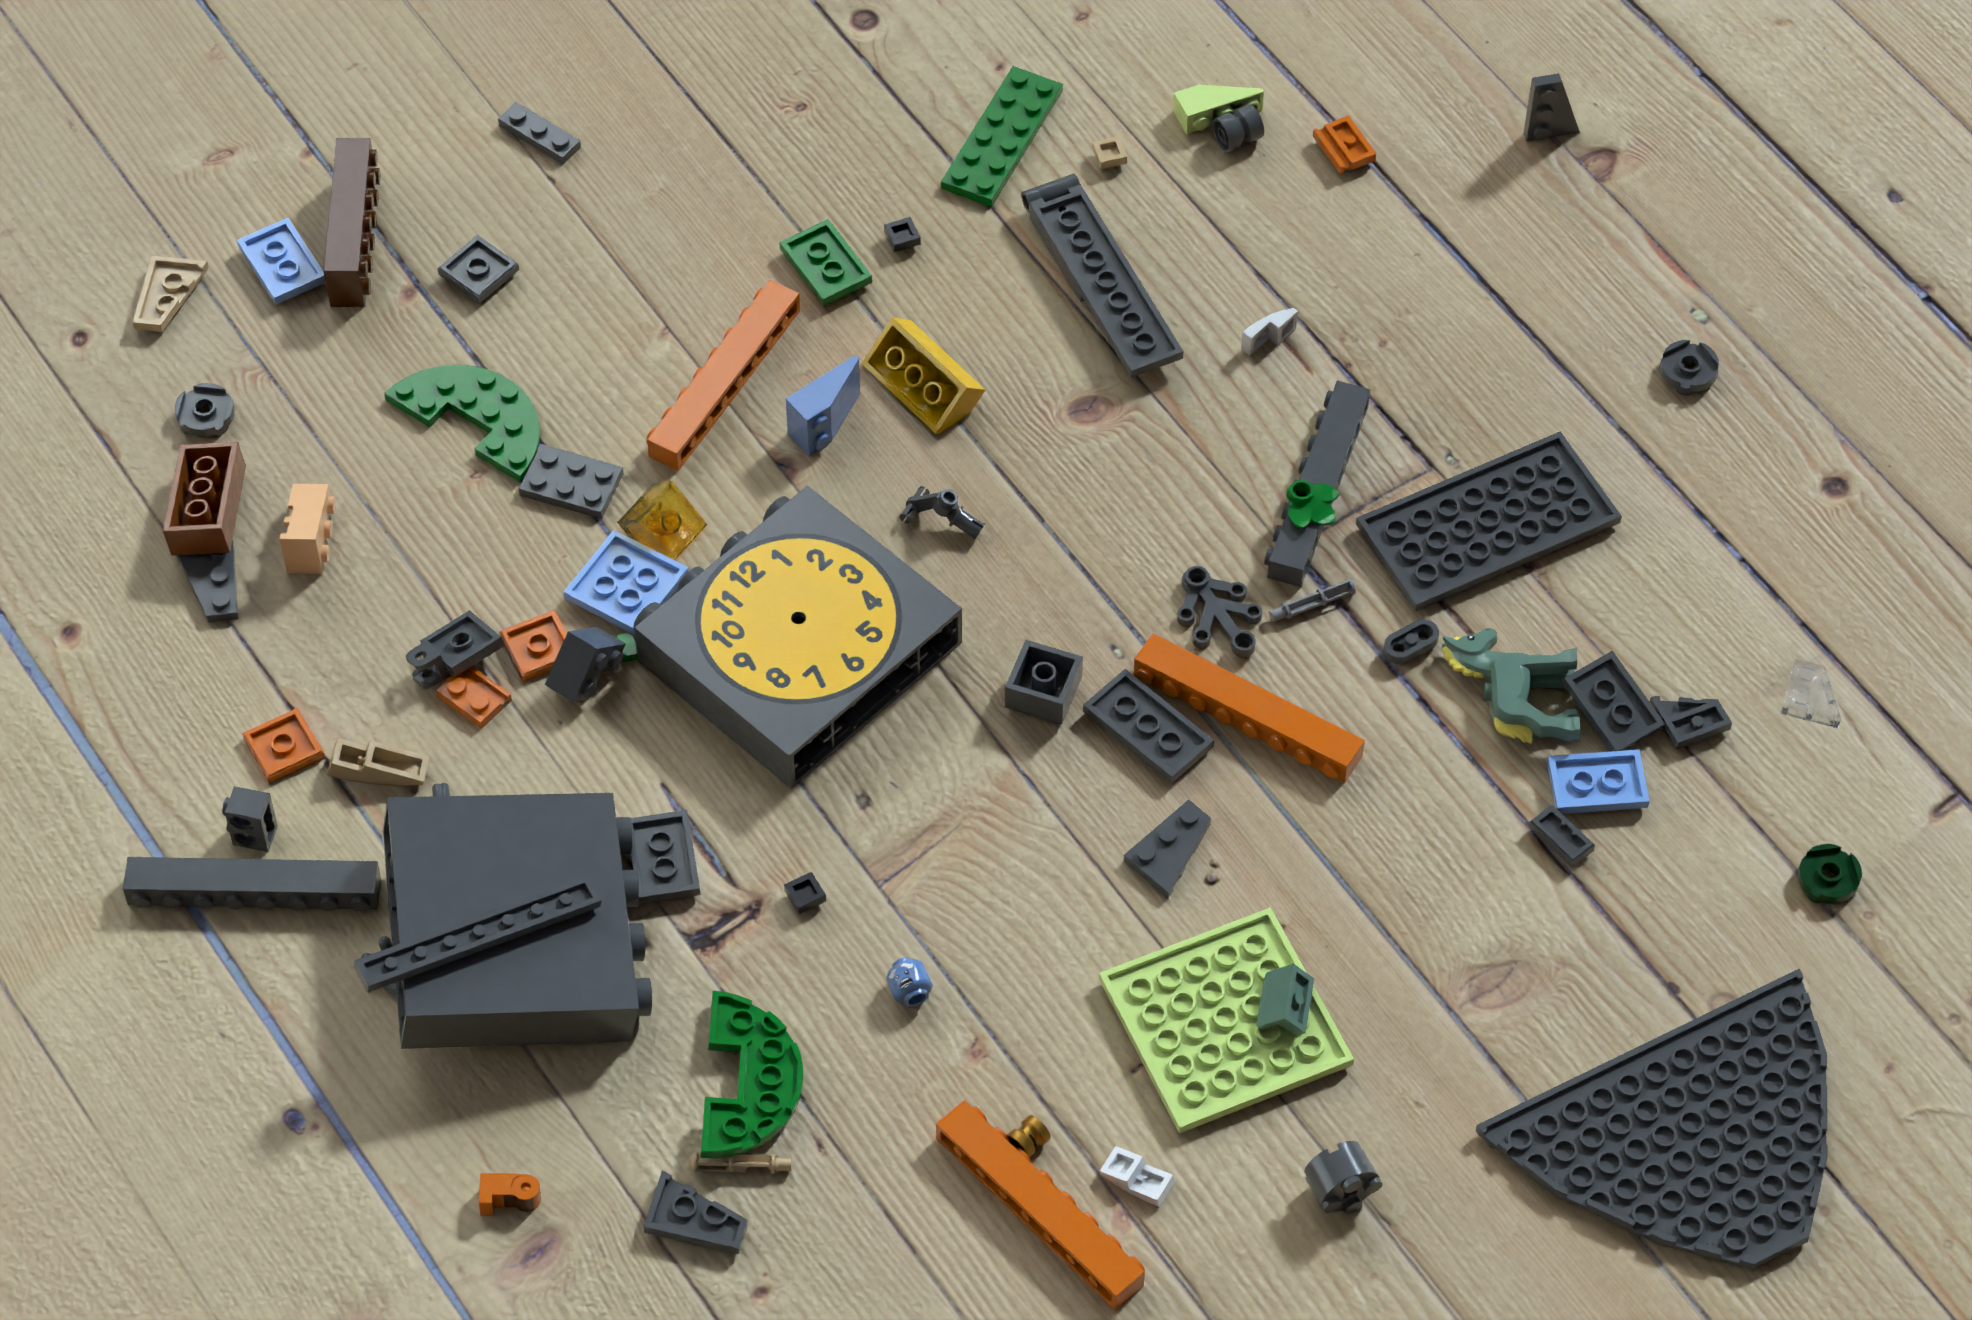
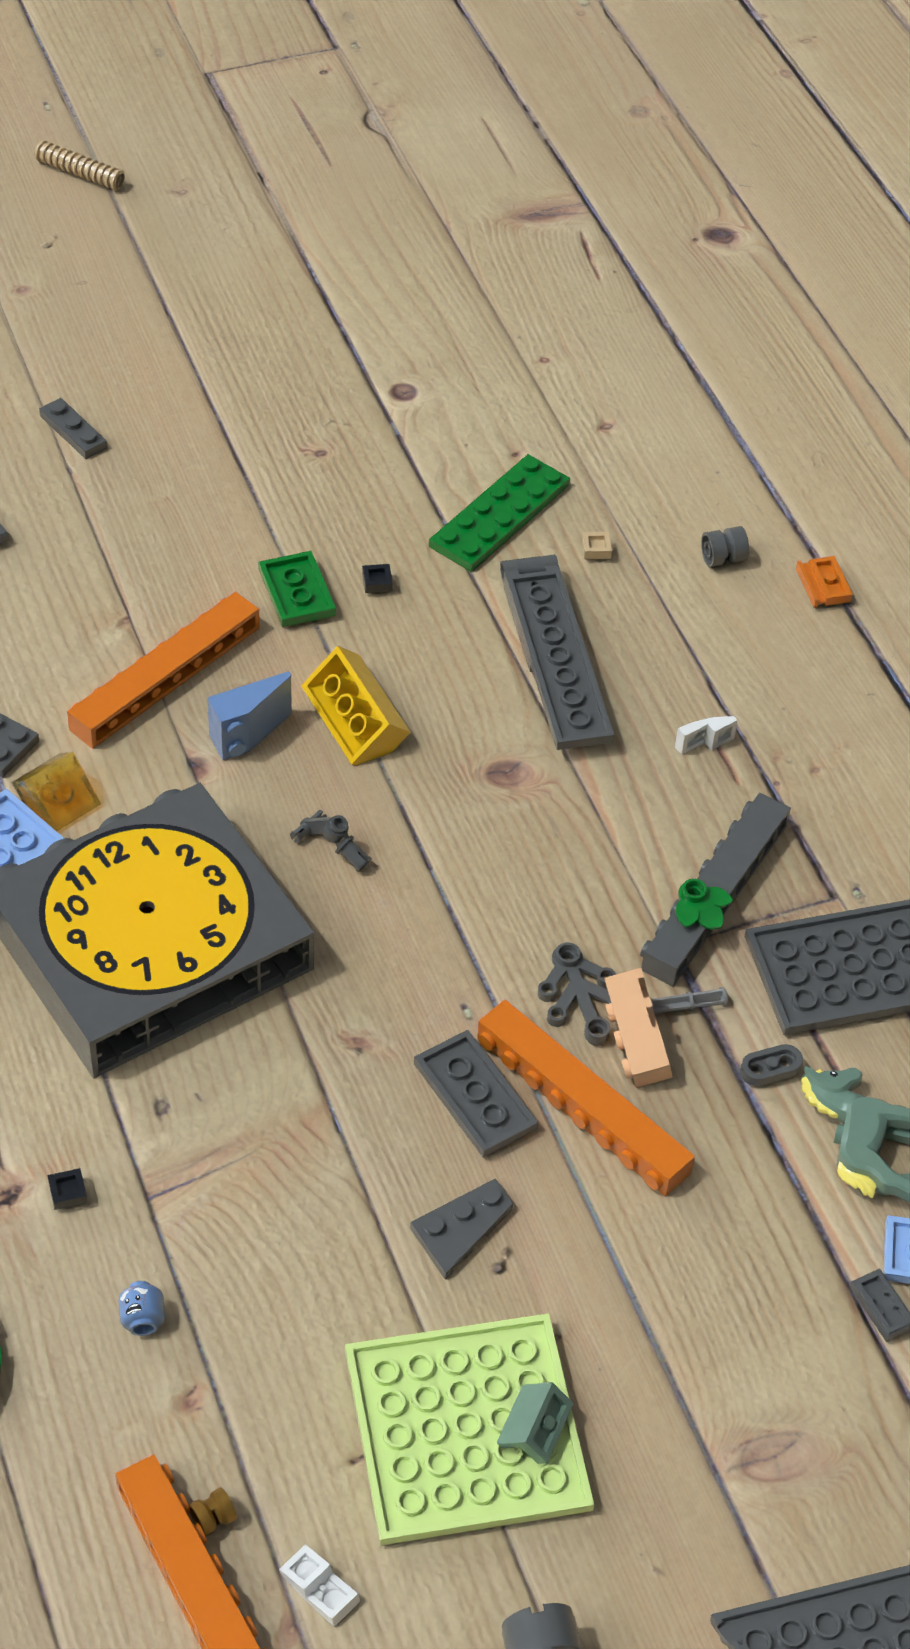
camera: 10 degrees right, 5 degrees down
(1043, 681) = (380, 1025): dark grey brick -> none
(1201, 104) = (693, 518): yellowish green slope -> none
(1282, 634) = (637, 1028): none -> light nougat wedge

